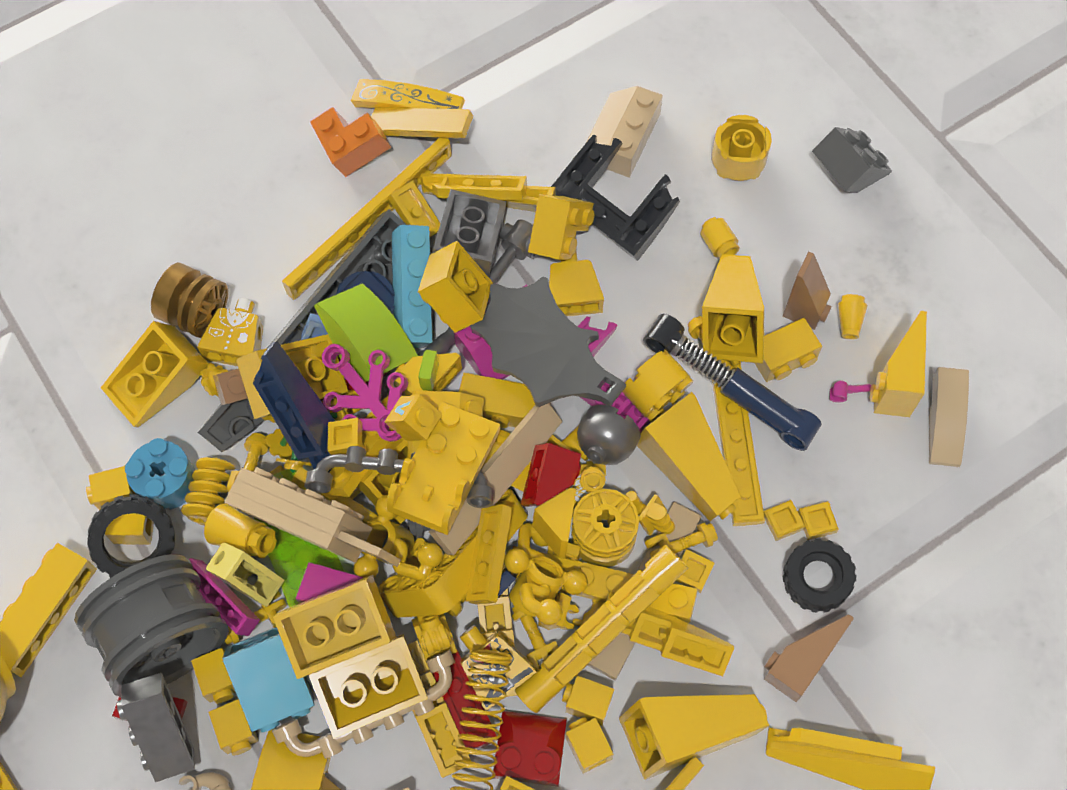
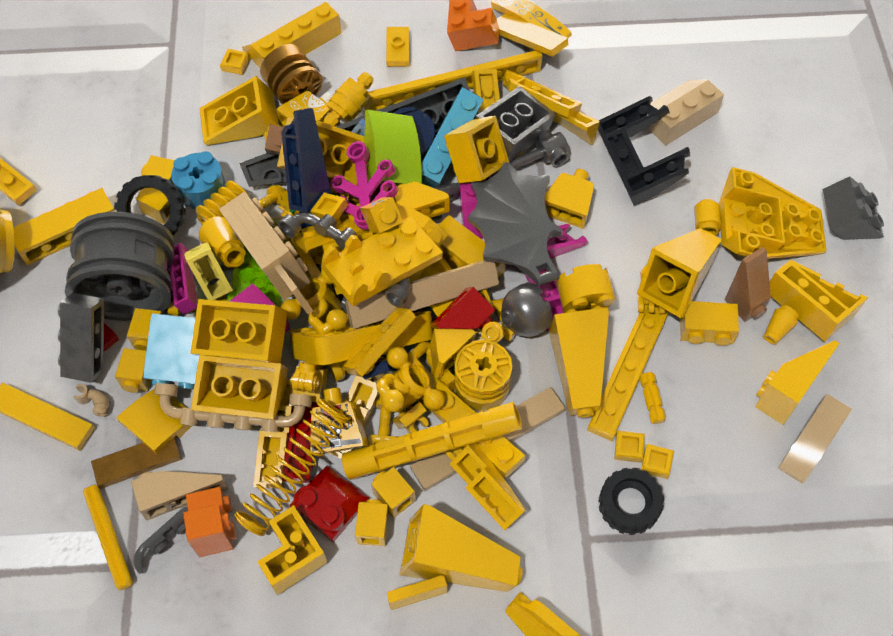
camera: 30 degrees right, 5 degrees down
(105, 311) = (235, 61): none -> yellow tile
(162, 247) = (306, 32): none -> yellow wedge
(275, 298) = (349, 100): none -> yellow piece
(280, 202) = (397, 46): none -> yellow plate
(428, 370) = (418, 192): lime tile -> none
(556, 225) = (582, 144): yellow brick -> none
(653, 515) = (525, 385): yellow arm -> none
(697, 571) = (533, 443): yellow plate -> none
(706, 534) = (559, 421): yellow hinge -> none
(741, 148) = (767, 156): yellow brick -> none
(777, 211) = (767, 216): none -> yellow wedge
(777, 458) = (652, 398): none -> yellow axle
(795, 425) = (681, 381): piece -> none
(803, 659) = (576, 555): medium nougat slope -> none
(839, 391) = (738, 374): dark pink hand -> none
(876, 274) = (819, 303): none -> yellow wedge

